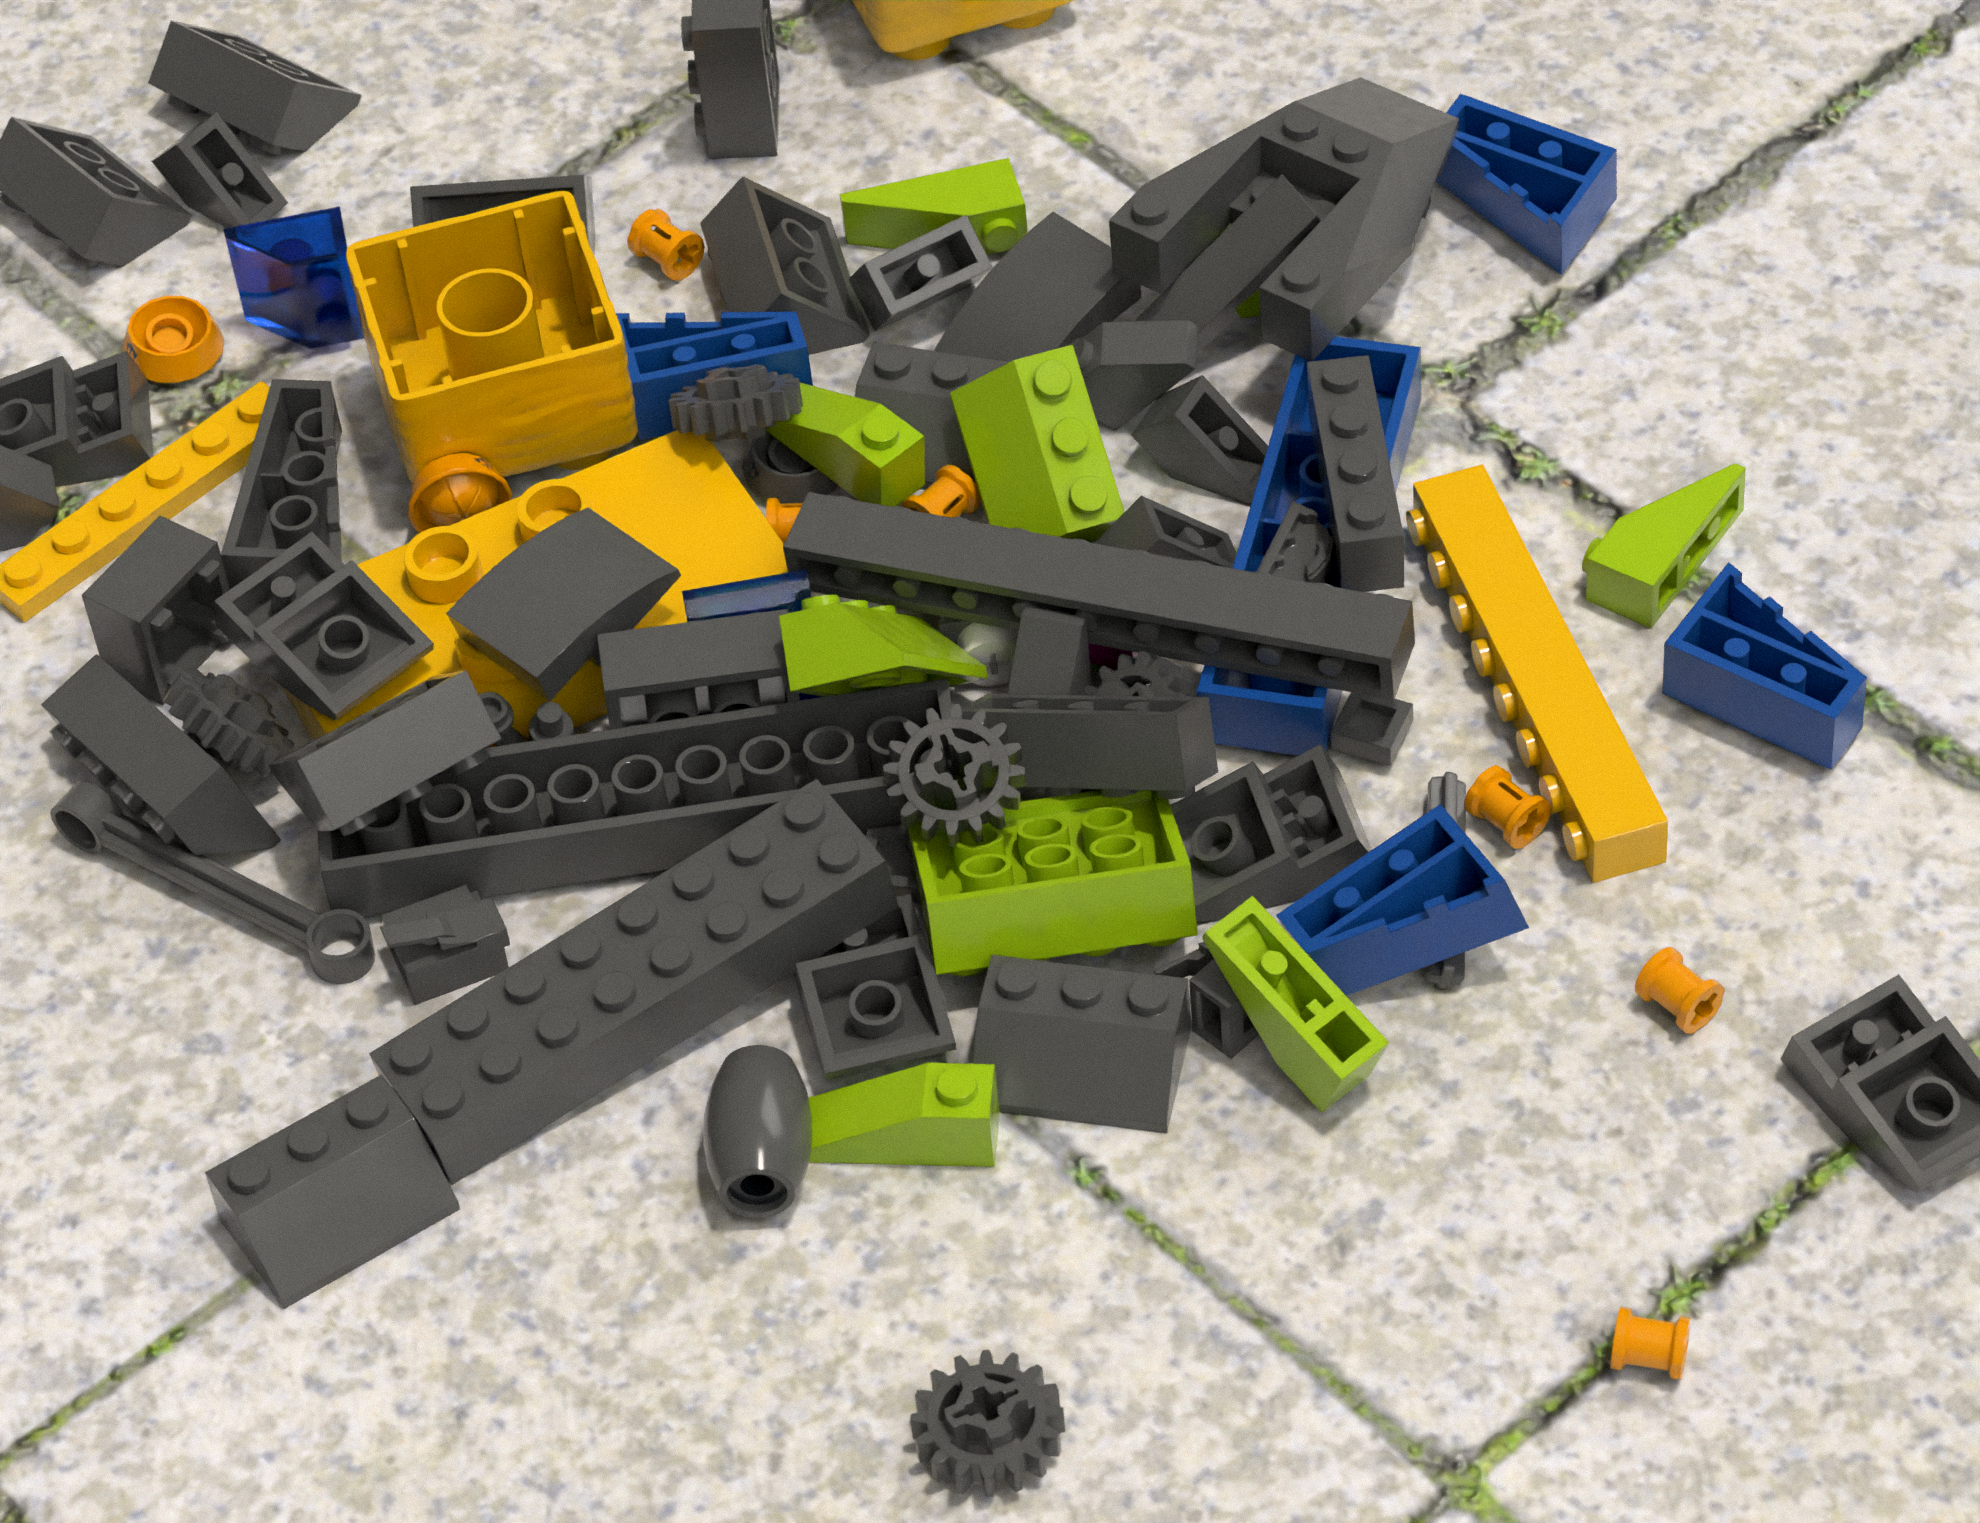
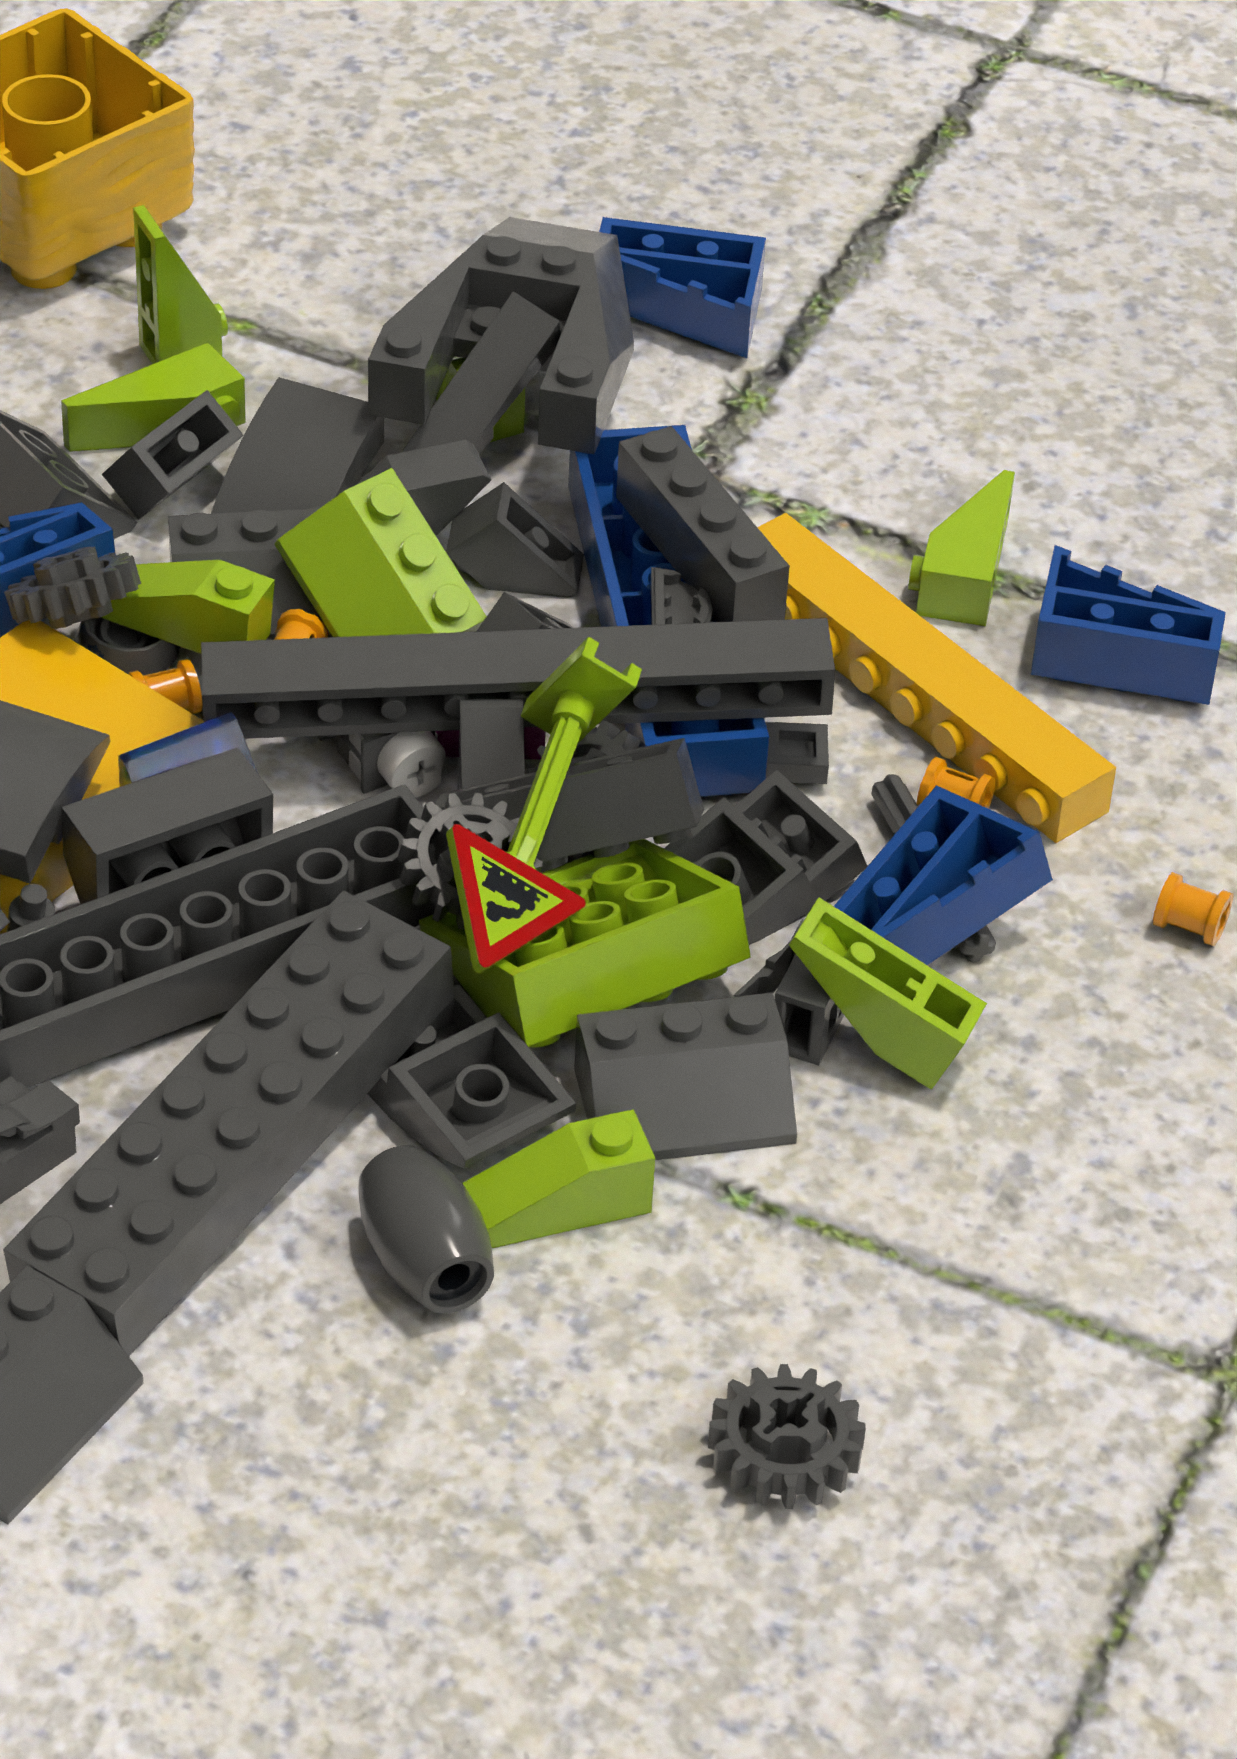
camera: 30 degrees left, 5 degrees down
(860, 648) = (325, 769): lime slope -> none
(959, 820) = (499, 891): none -> lime piece
(997, 103) = (170, 301): none -> lime slope

